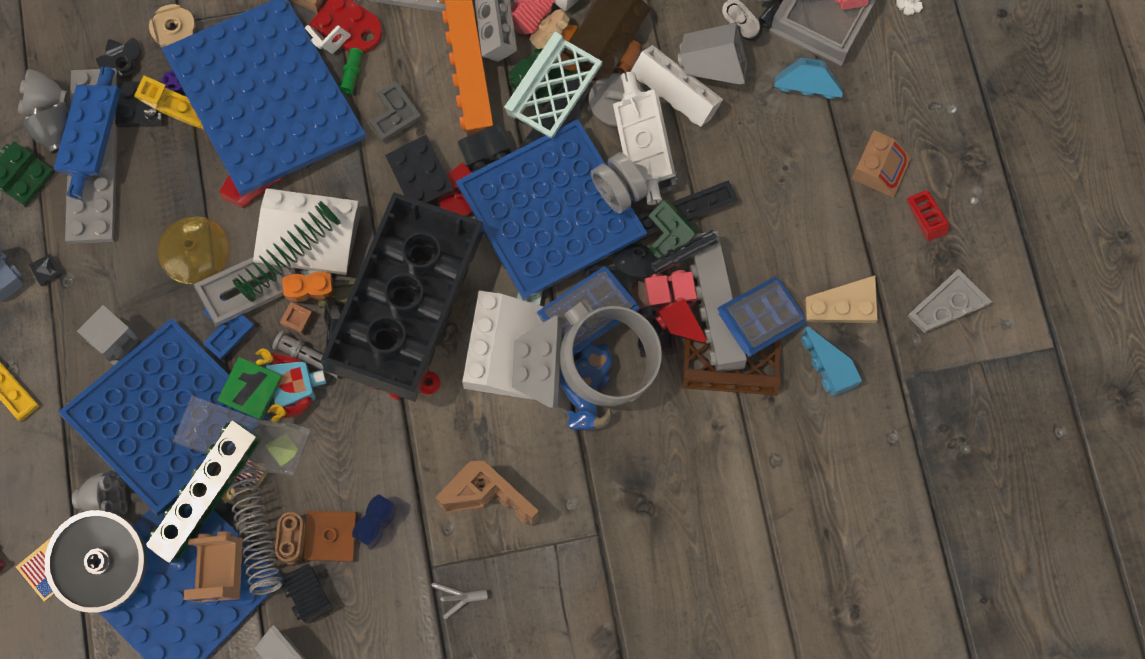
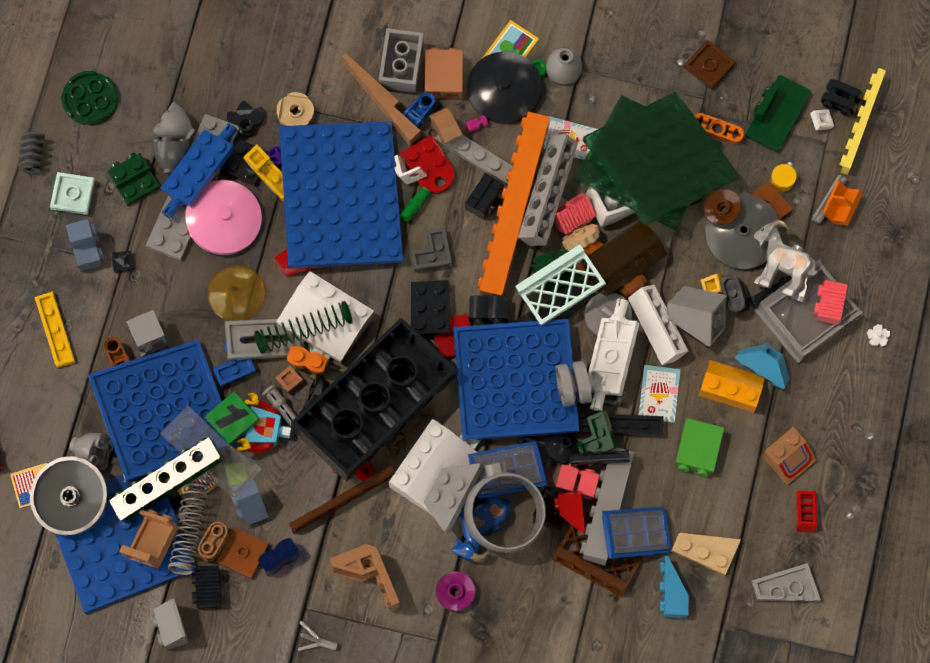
camera: 25 degrees right, 0 degrees up
(84, 377) = (118, 356): none -> dark orange piece
(142, 173) = (224, 218): none -> bright pink dish
(314, 476) = (250, 504): none -> sand blue brick
(417, 426) = (341, 500): none -> reddish brown tile
(424, 31) = (485, 196): none -> black brick
(597, 459) = (454, 581): none -> magenta dish
(710, 157) = (659, 392): none -> sticker
(711, 19) = (712, 283): none -> yellow slope
(783, 196) = (699, 447): none -> bright green panel
(785, 119) = (731, 386): none -> light orange slope

